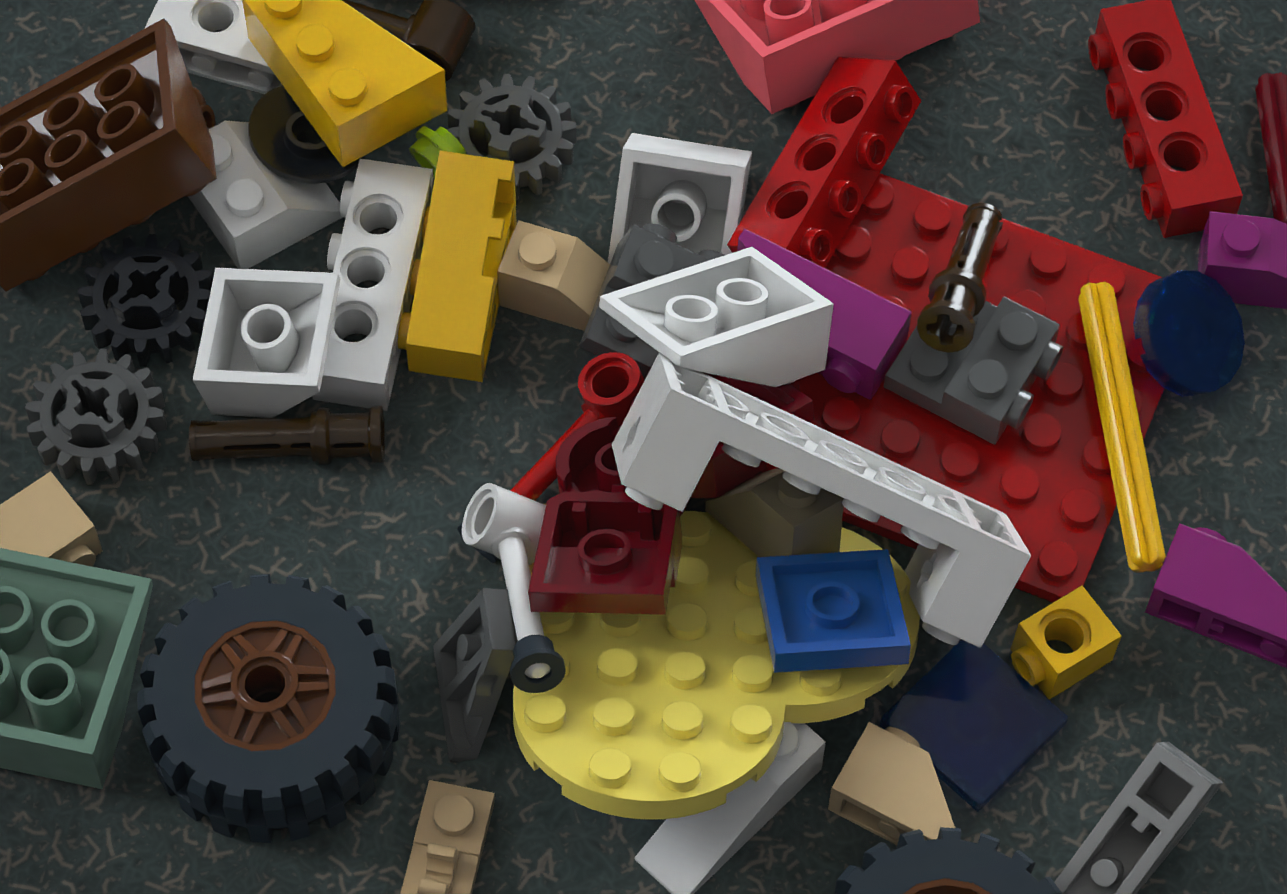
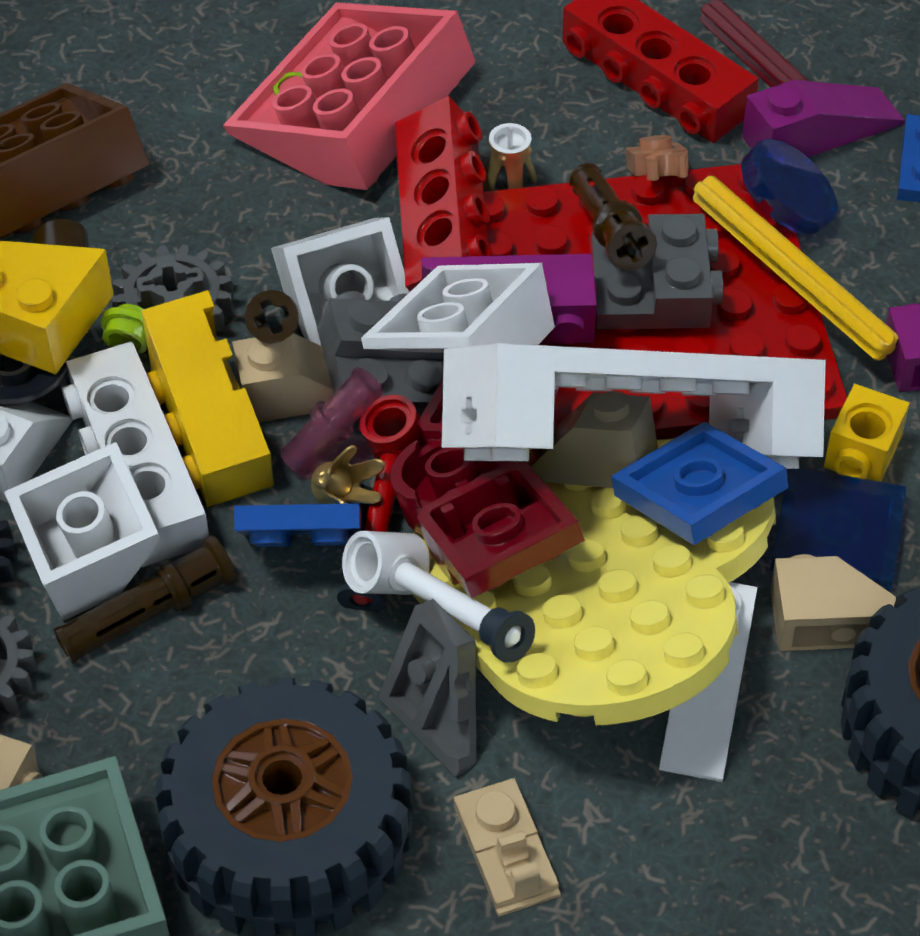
camera: 30 degrees left, 10 degrees down
(477, 447) = (276, 523): none -> blue plate
(536, 415) = (340, 482): none -> pearl gold piece
(560, 351) = (331, 421): none -> clear pink pin
(567, 221) = (257, 310): none -> dark brown pin
(932, 146) = (510, 149): none -> piece
(1081, 231) = (657, 158): none -> nougat plate

